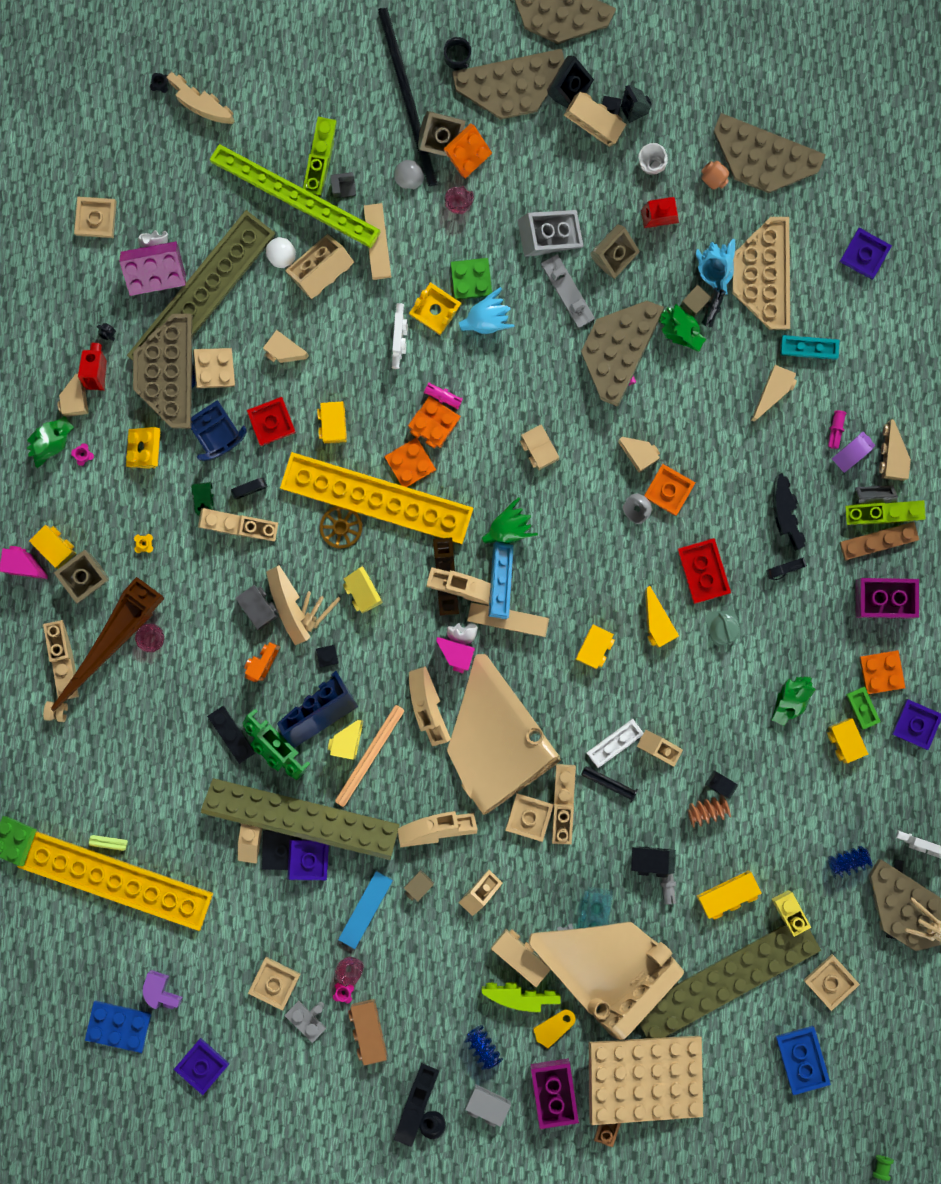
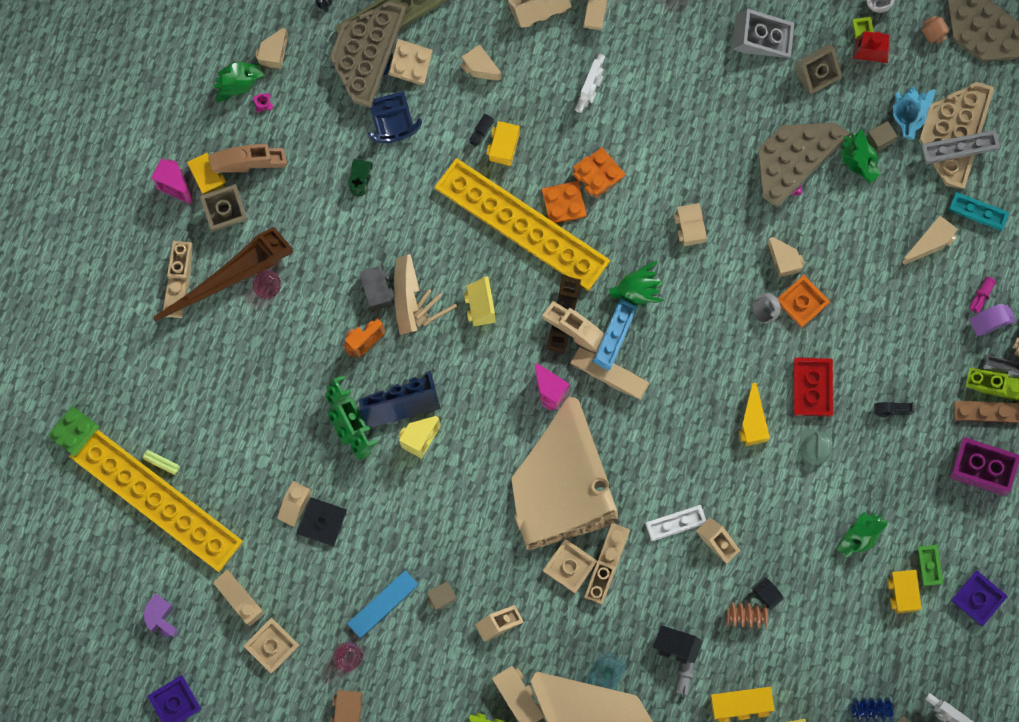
camera: 20 degrees right, 10 degrees down
(58, 714) = (155, 326): tan wheel -> none
(86, 517) = (245, 157): none -> medium nougat slope
(93, 368) = (299, 29): red torso -> none
(118, 1026) = (109, 639): blue plate -> none
(148, 543) = (291, 203): yellow plate -> none
(149, 455) = (323, 120): yellow piece -> none
(227, 949) = (238, 598): none -> tan slope
(231, 734) = (311, 398): black plate -> none
(237, 525) = (384, 208): tan slope -> none
(249, 488) = (405, 178): black beam -> none
(271, 421) = (447, 125): red plate -> none
(300, 818) = (351, 496): olive plate -> none
(306, 414) = (481, 129): none -> black bar
(306, 1020) = (290, 692): light grey plate -> none
(307, 860) = (344, 537): dark purple plate -> none
(327, 656) = (427, 354): black plate -> none
(338, 996) = (335, 682): dark pink plate -> none
(340, 527) = (479, 242): pearl gold wheel -> none
(369, 755) = (437, 458): light nougat axle -> none
(425, 707) = (504, 429): tan slope -> none
(429, 297) = (633, 59): yellow piece -> none
(431, 828) = (471, 544): tan slope -> none
(443, 395) = (615, 150): dark pink pin -> none
(465, 637) = (566, 374): white hair -> none
(471, 278) = (675, 55): bright green plate -> none
(487, 315) = (679, 90): medium azure piece -> none
(568, 291) = (763, 93): light grey hinge -> none
(595, 646) = (685, 424): yellow brick -> none
(609, 783) = (658, 559): black axle -> none
(644, 194) = (860, 25): none -> lime plate
(713, 307) = (896, 146): black pin -> none
(774, 289) = (960, 147): none -> light grey plate
(783, 504) = (910, 348): black slope -> none
(882, 672) = (959, 537): orange plate -> none

